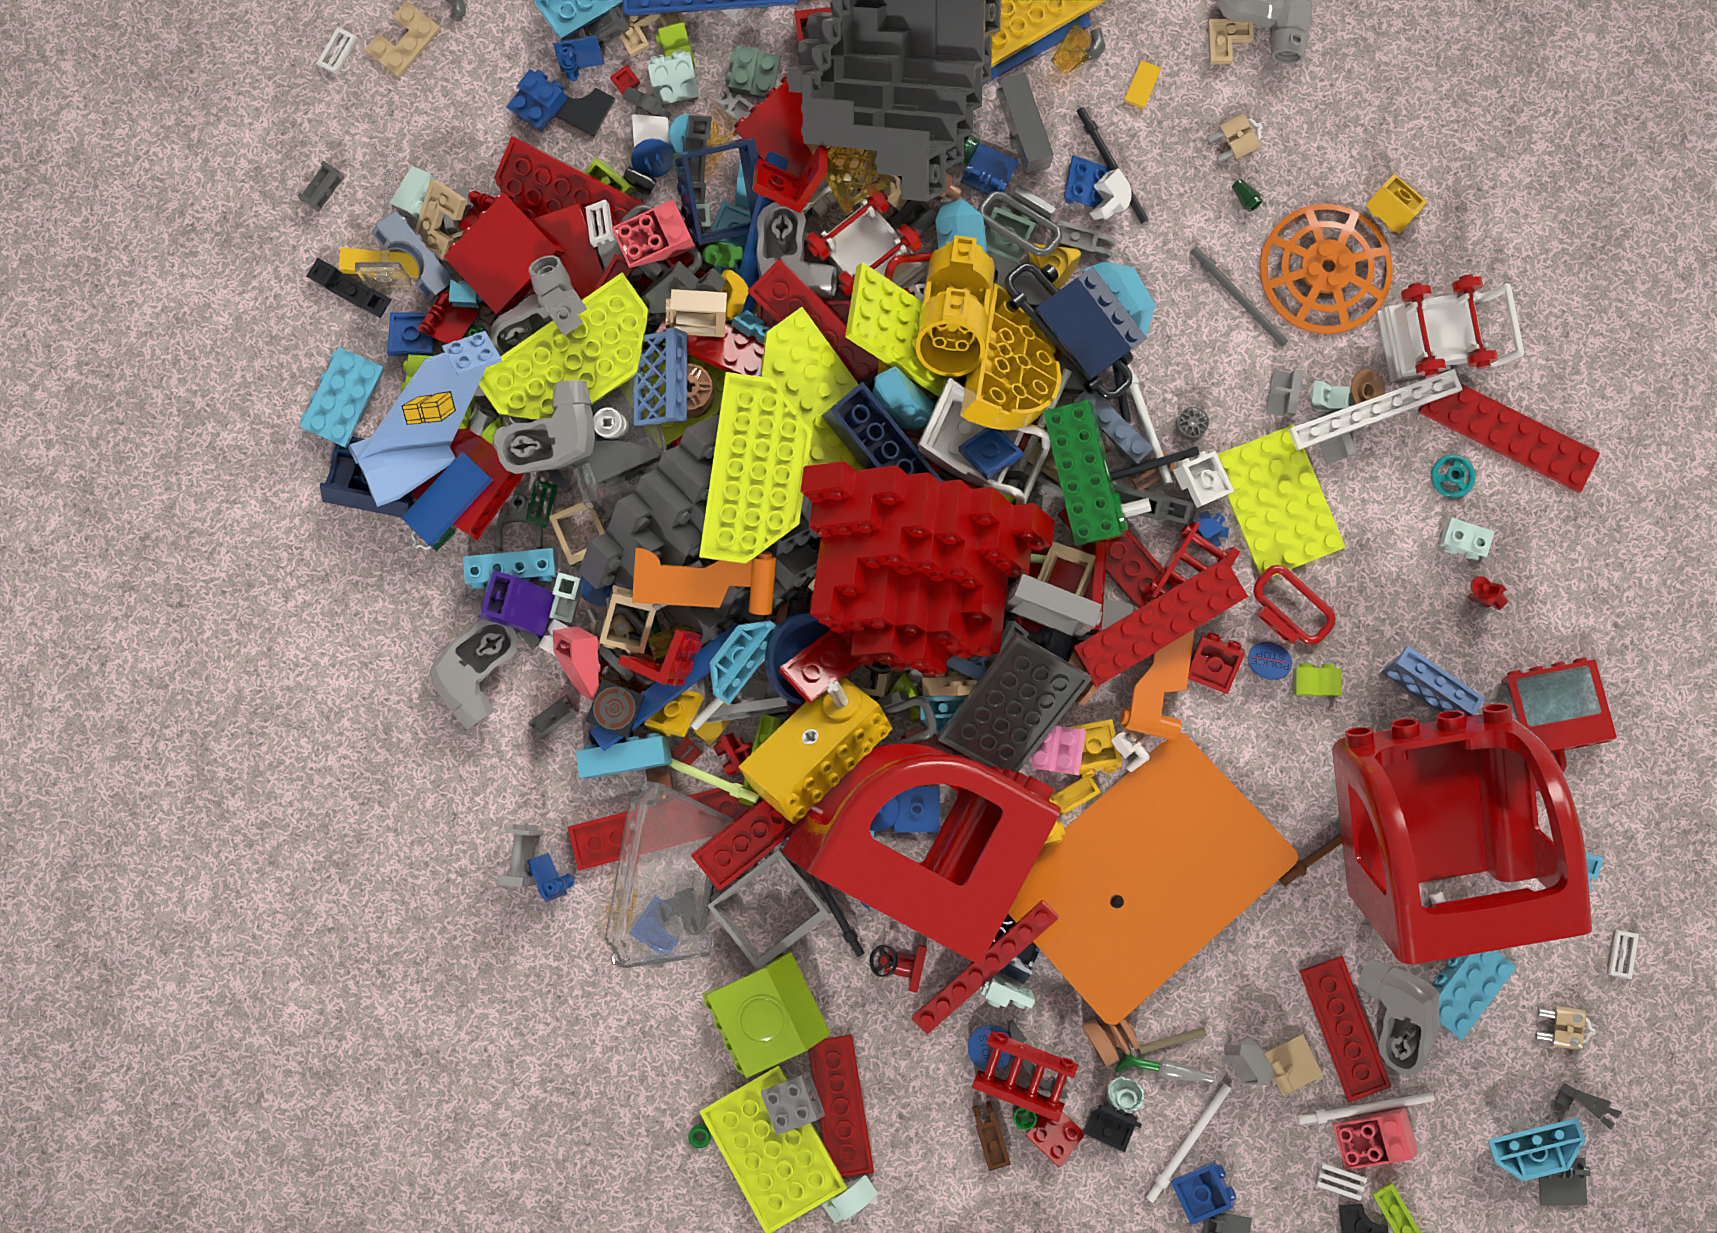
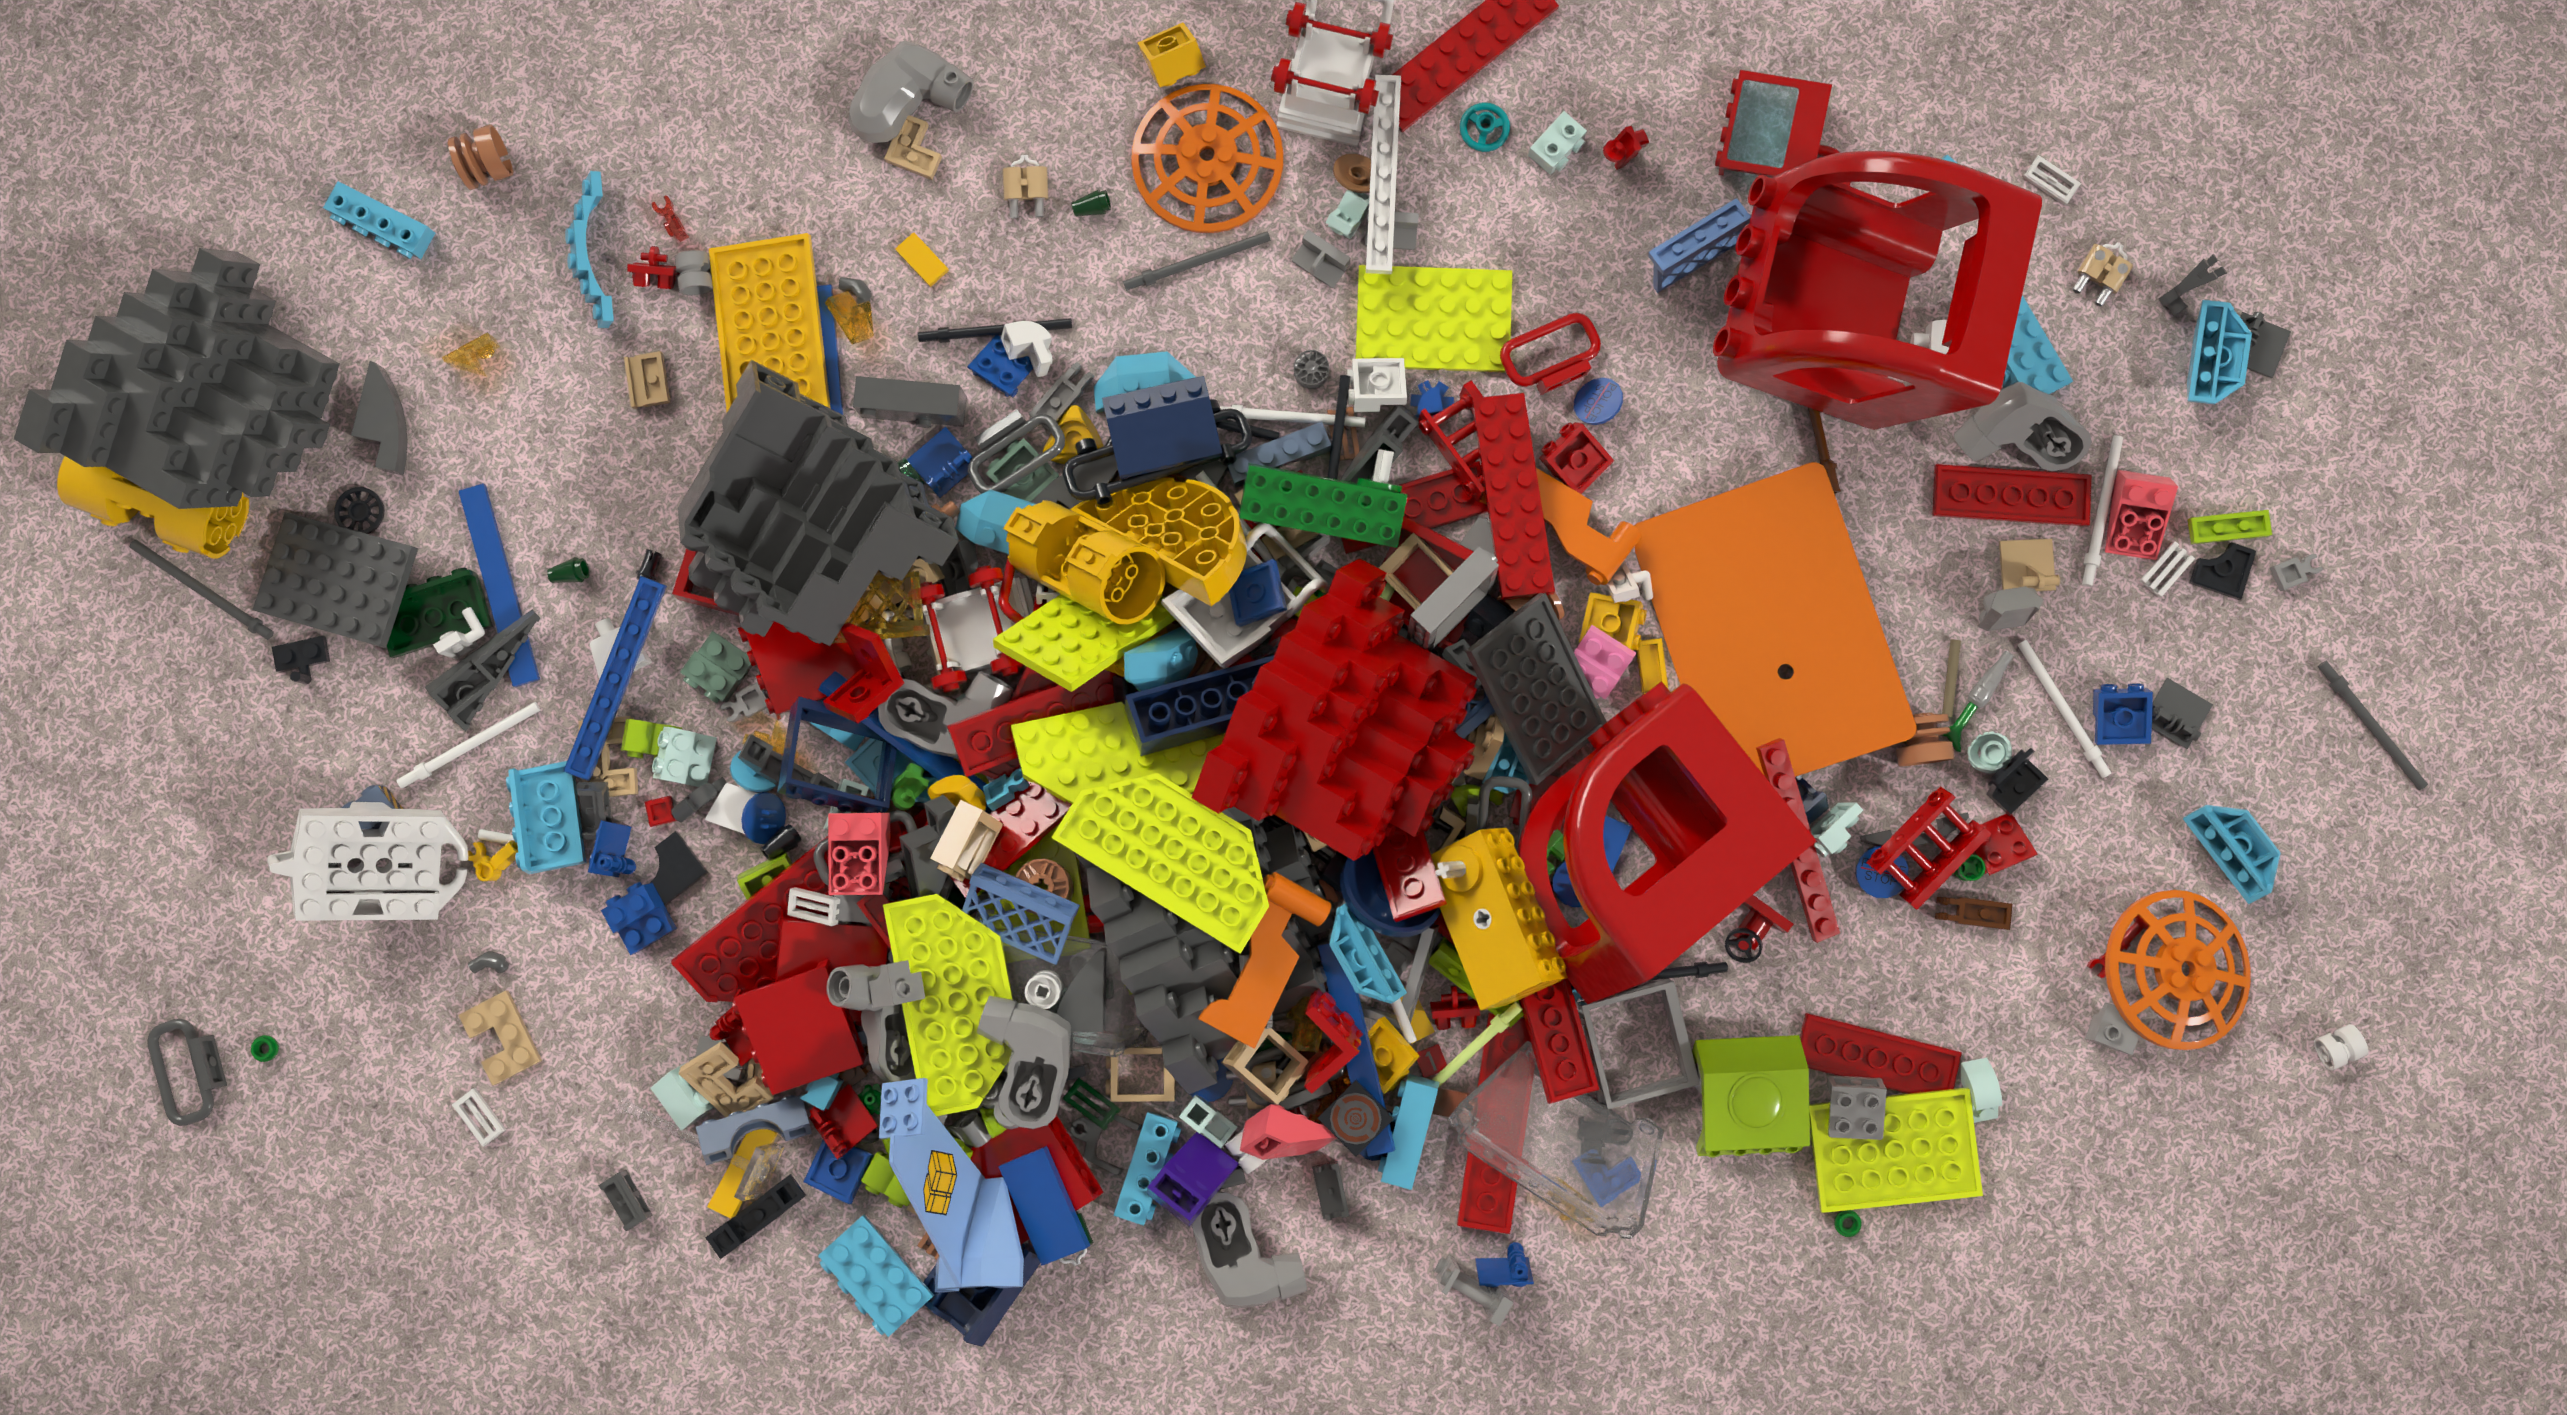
camera: 65 degrees left, 0 degrees up
(1317, 681) = (1640, 362): lime brick -> none

